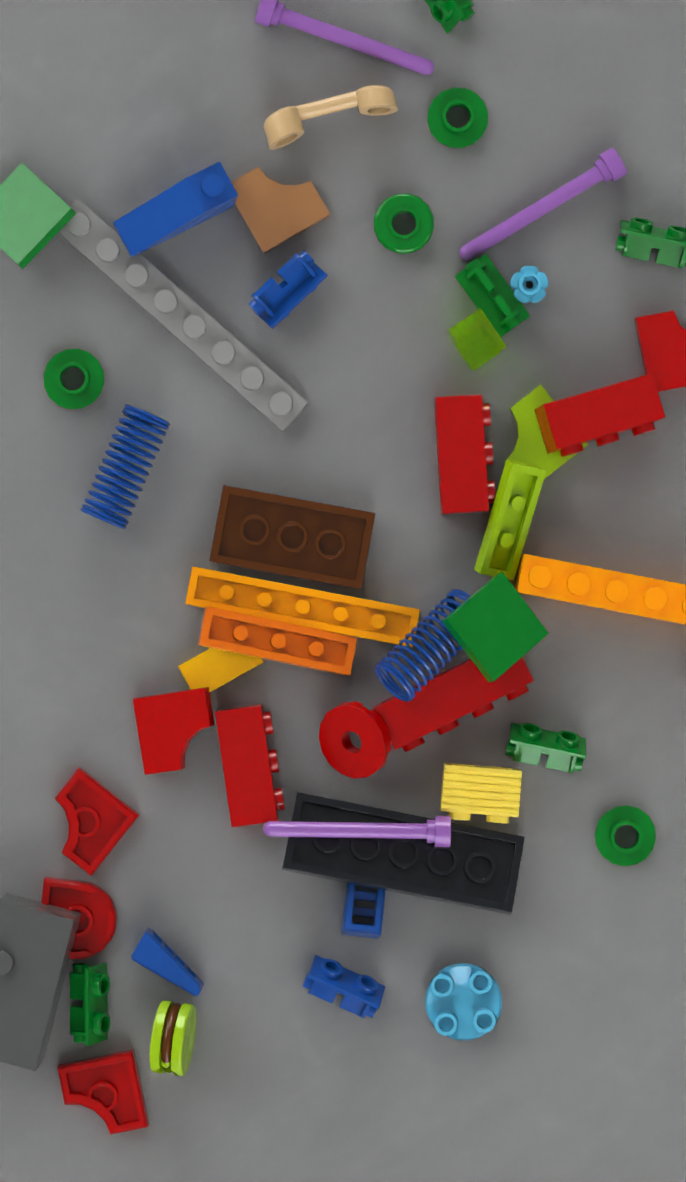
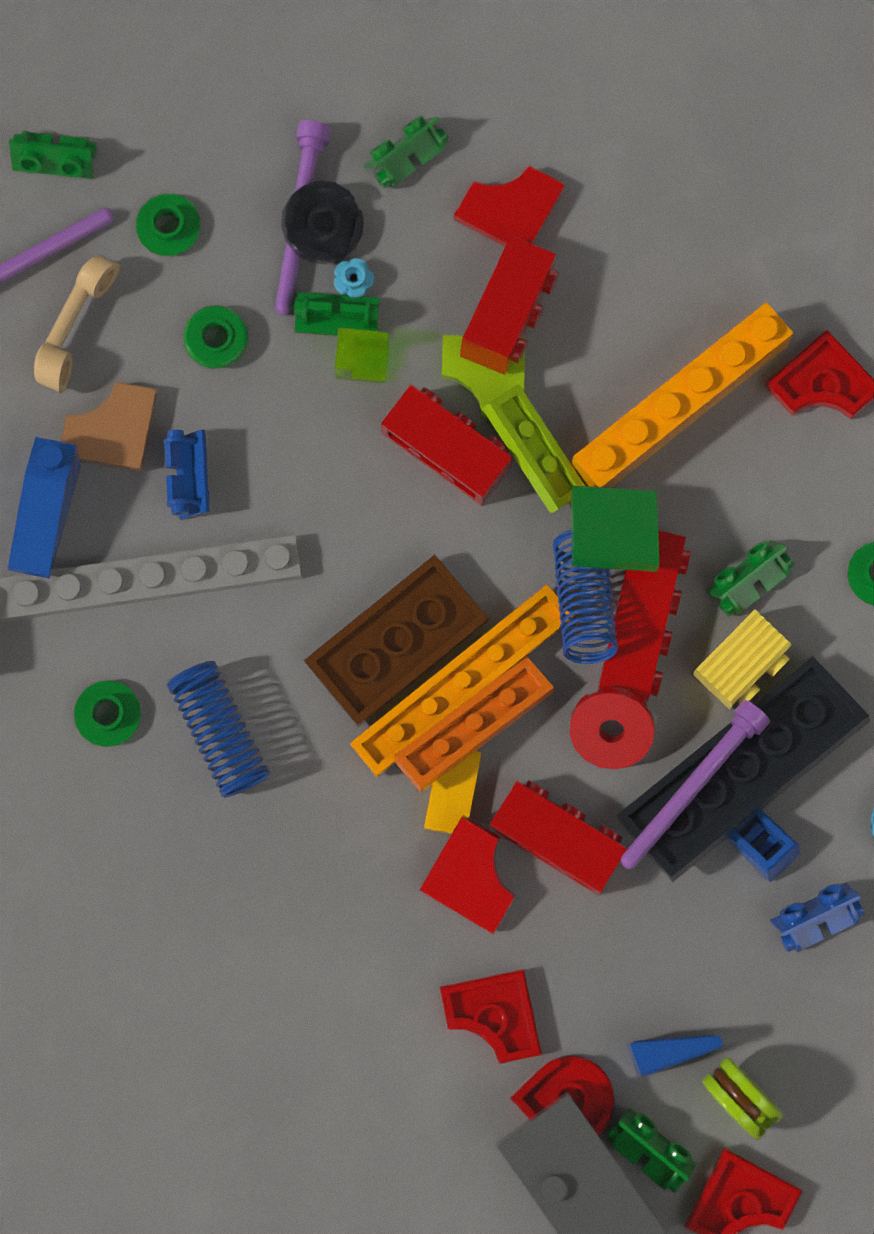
camera: 50 degrees left, 10 degrees down
(551, 227) = (322, 222): none -> black tile

